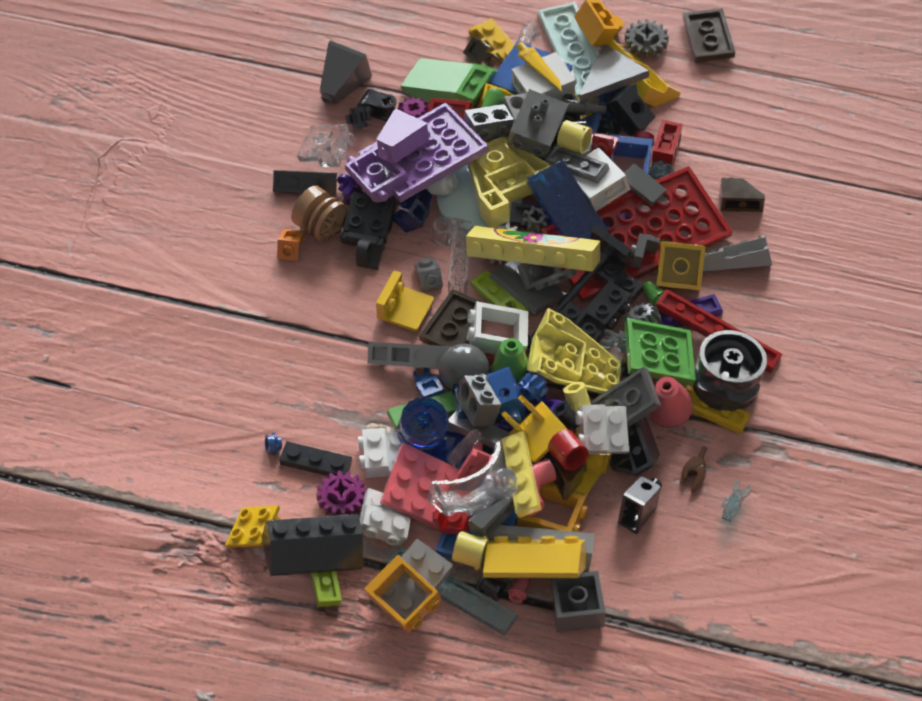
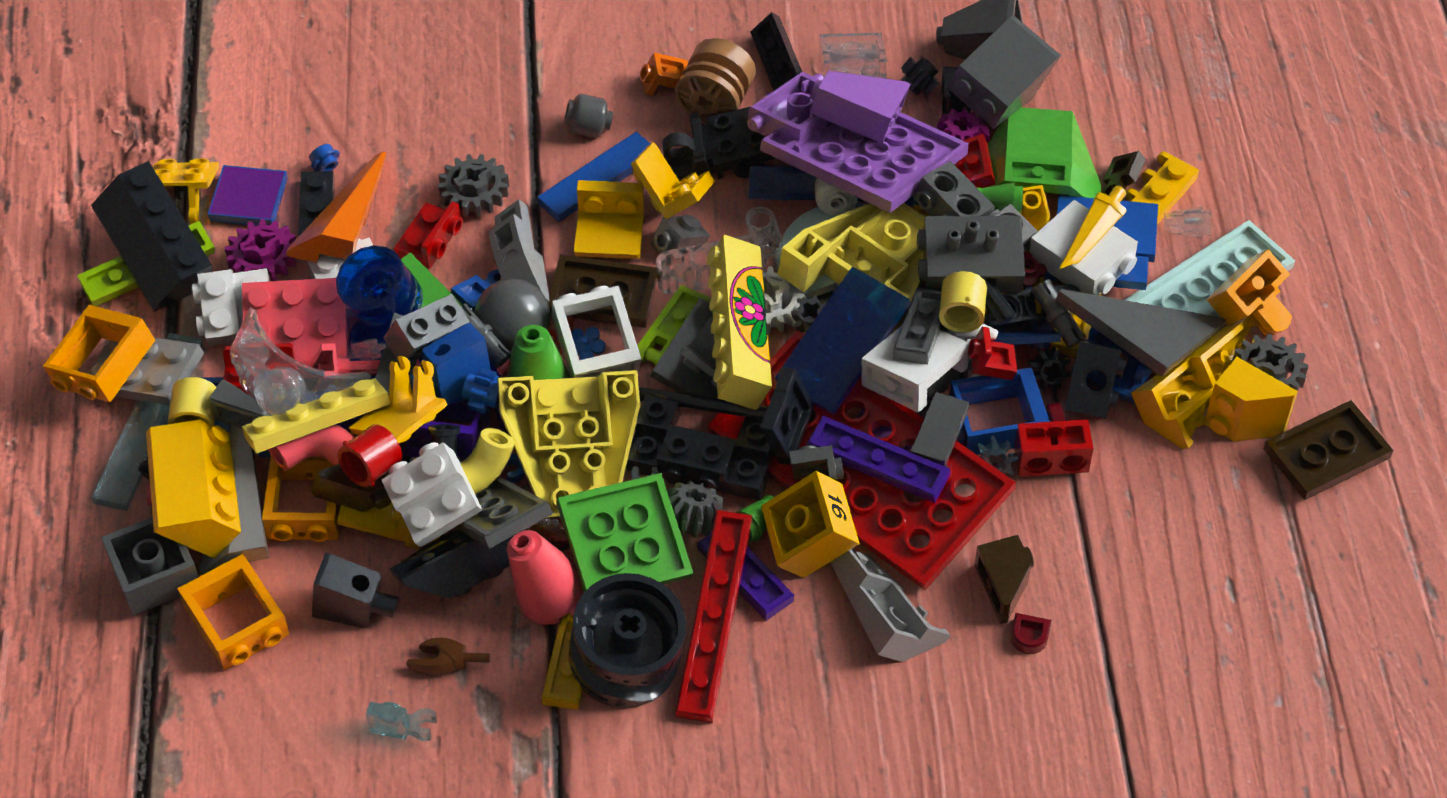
camera: 70 degrees right, 0 degrees up
(286, 492) = (247, 195): none -> dark purple tile
(308, 291) = (588, 116): none -> dark grey head
(345, 438) = (341, 222): none -> orange wedge
(348, 362) = (474, 184): none -> dark grey gear
(357, 302) = (610, 166): none -> blue tile
(365, 401) = (430, 233): none -> red bracket
(391, 70) = (1003, 72): none -> dark grey slope
(402, 254) = (666, 191): none -> yellow bracket
(631, 585) = (218, 586): none -> light orange window
(650, 218) = (881, 459): none -> dark purple tile
(671, 52) = (1249, 403): none -> yellow slope
(776, 200) = (1030, 633): none -> dark red tile

